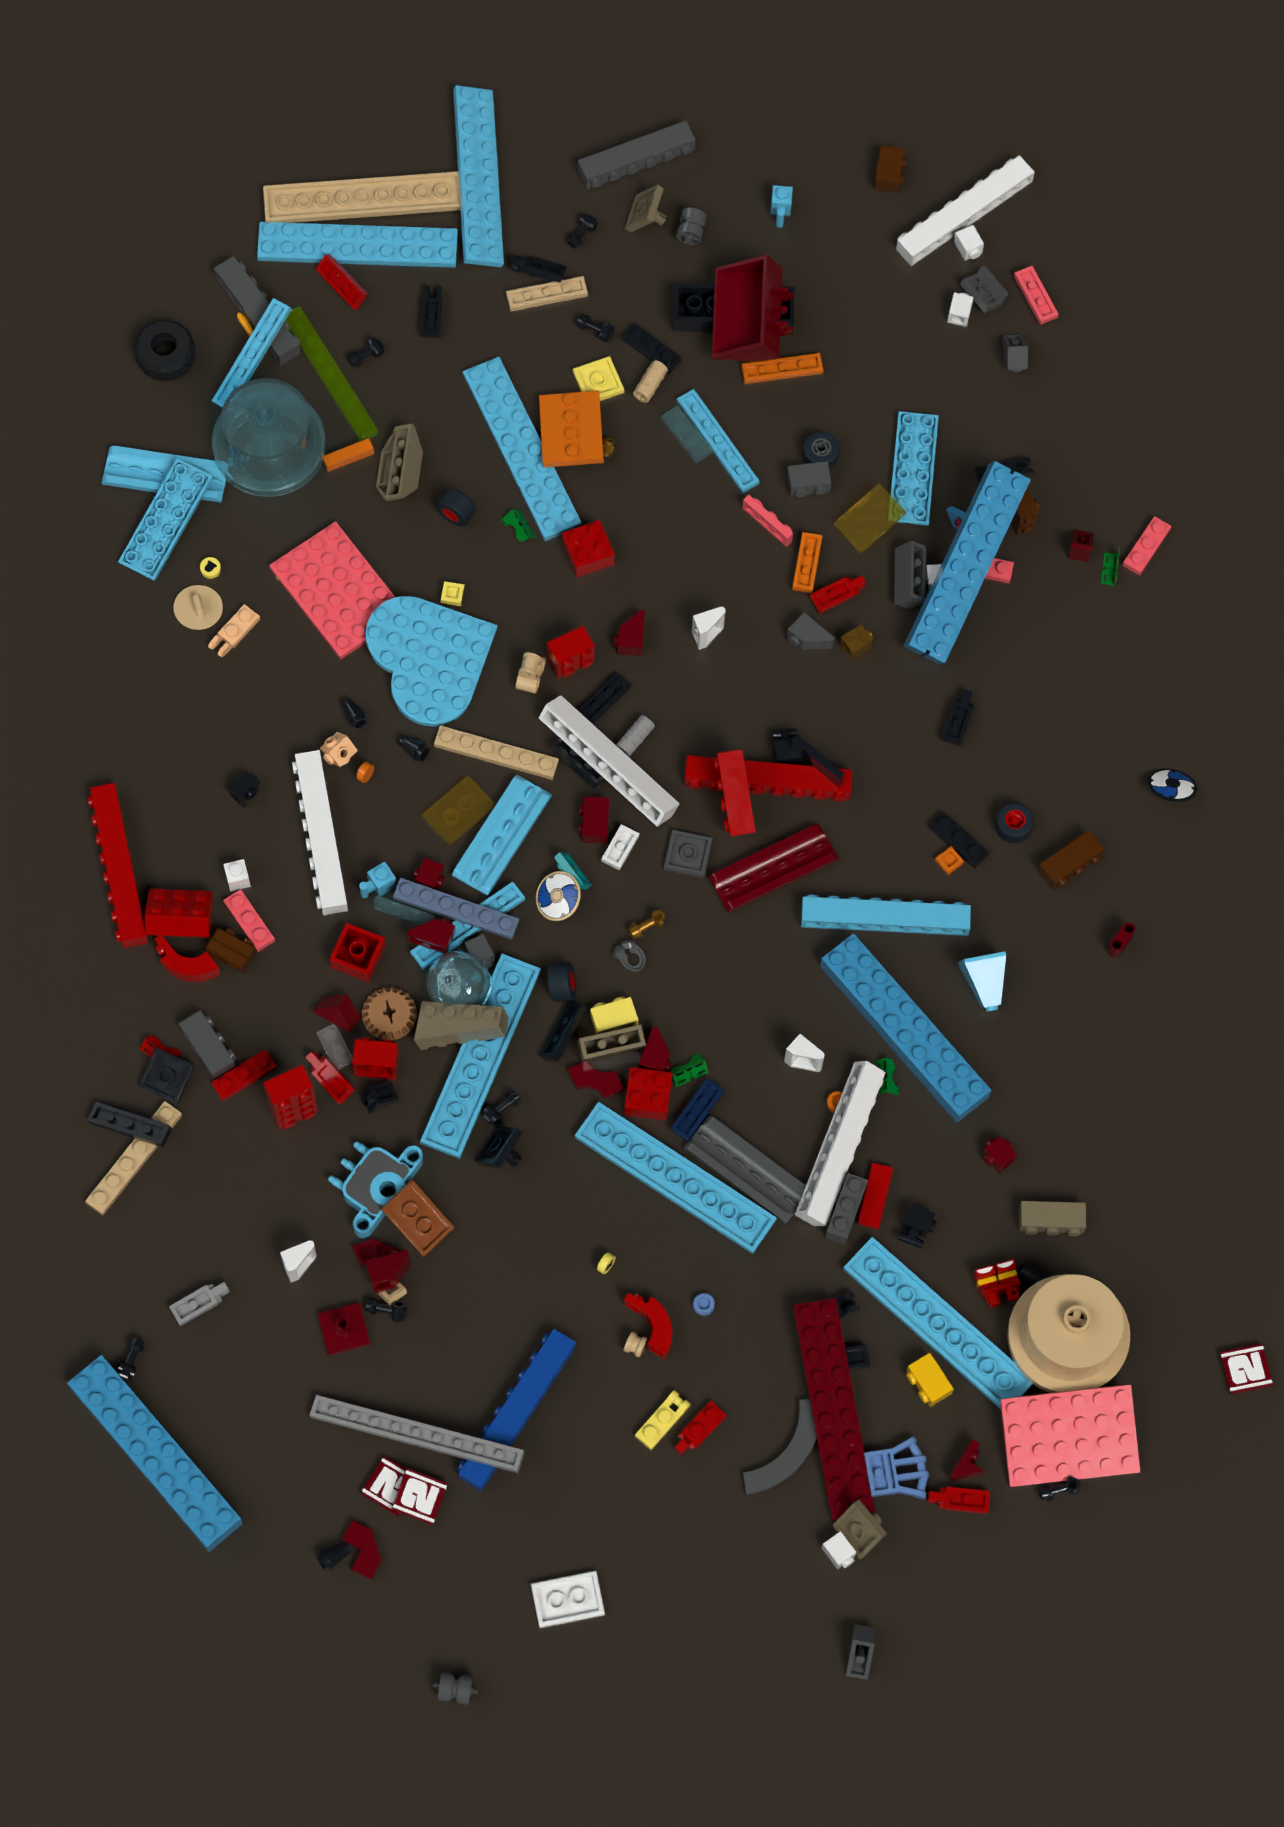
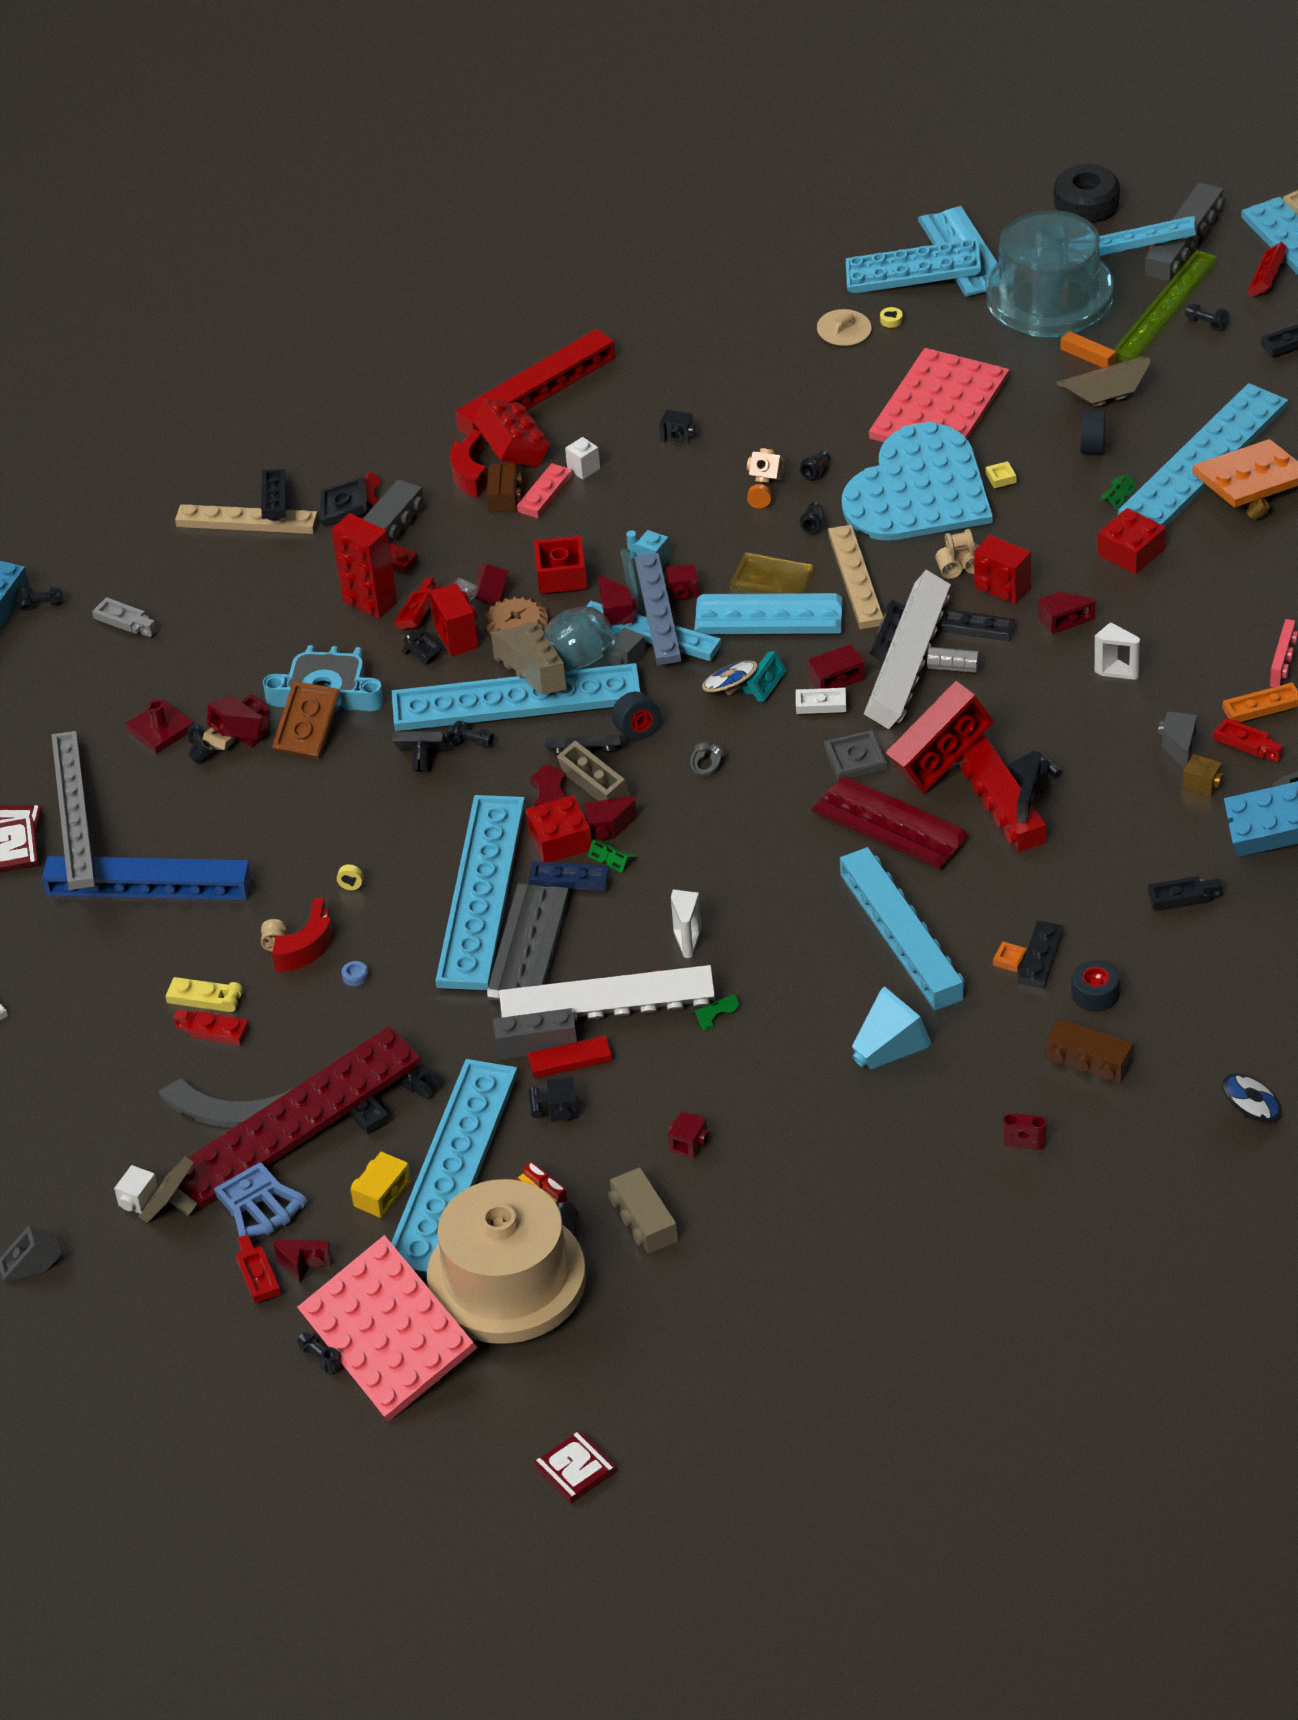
camera: 70 degrees right, 25 degrees down
(235, 630) = (838, 358): light nougat hinge -> none
(298, 1259) = (197, 656): white tile -> none
(321, 833) = (670, 494): white brick -> none
(613, 1015) = (635, 770): light yellow brick -> none
(657, 920) = (760, 756): pearl gold bar -> none
(905, 1028) = (779, 996): dark azure brick -> none

